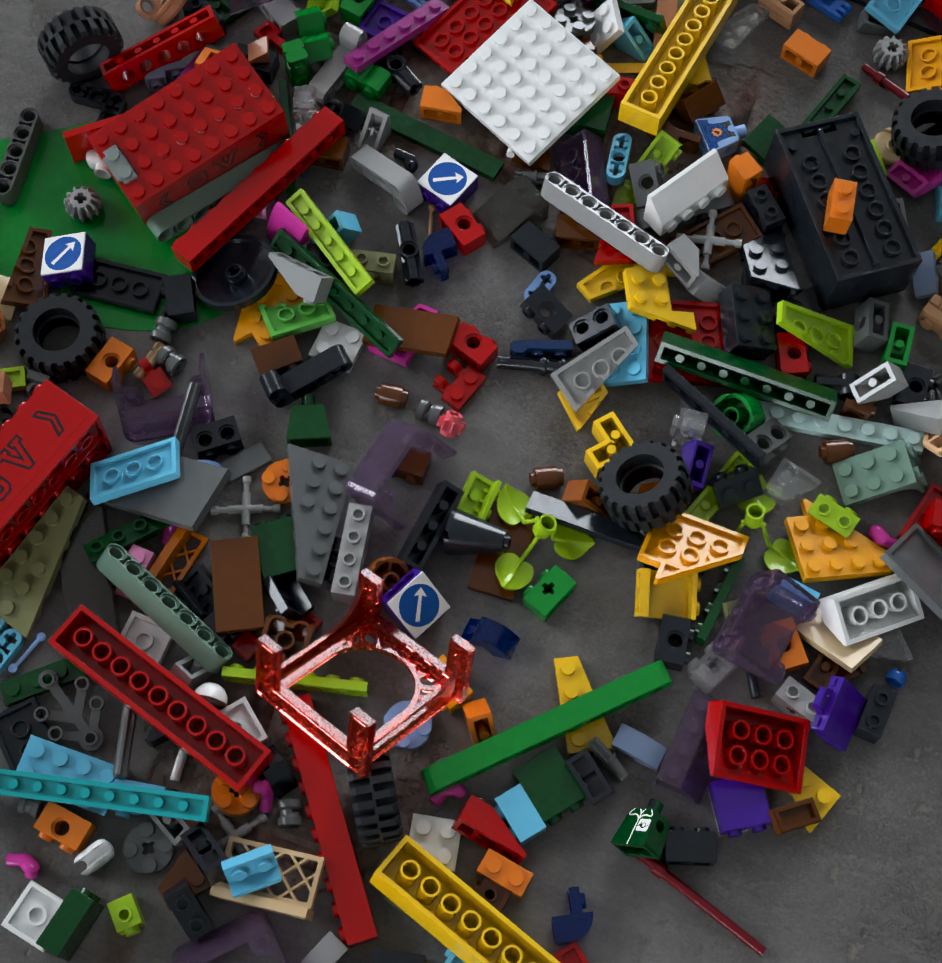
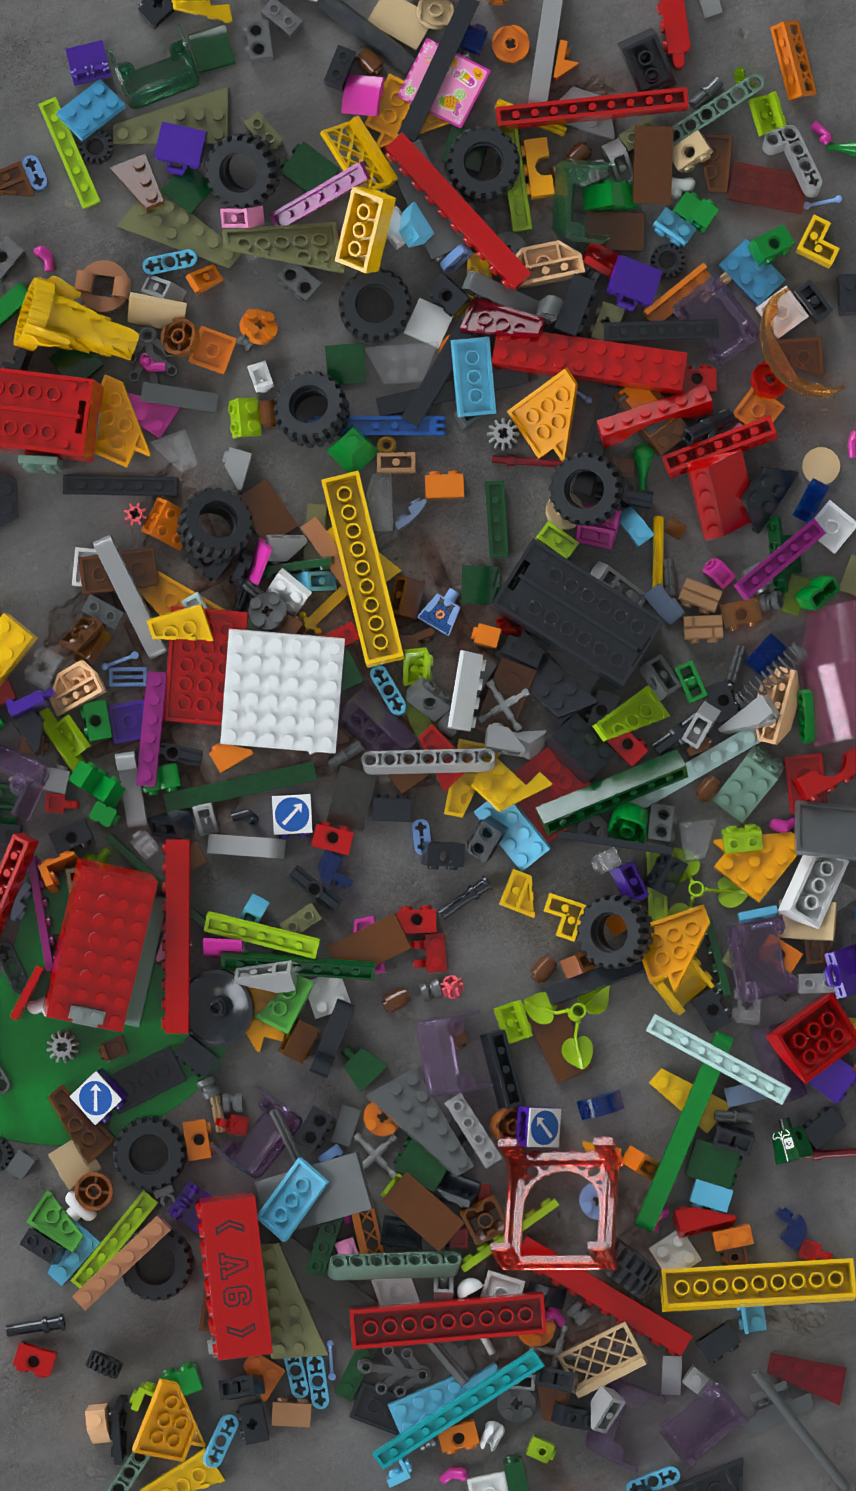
camera: 45 degrees left, 20 degrees up
(119, 240) = (113, 1049): none -> reddish brown bracket
(223, 927) = (605, 1408): none -> light grey slope
(252, 871) = (594, 1366): medium azure bracket -> none
(259, 51) = (71, 830): nougat slope -> none
(431, 208) = (315, 864): medium nougat hinge -> none
(474, 536) = (536, 1051): black cone -> none
(541, 348) = (462, 882): dark blue hinge -> none
(545, 605) = (616, 1034): green brick -> none
(589, 370) = (510, 872): light grey wing -> none
(643, 685) = (718, 1059): none -> light aqua tile
(766, 52) = (415, 509): none -> sand blue slope
(840, 206) = (583, 633): orange brick -> none

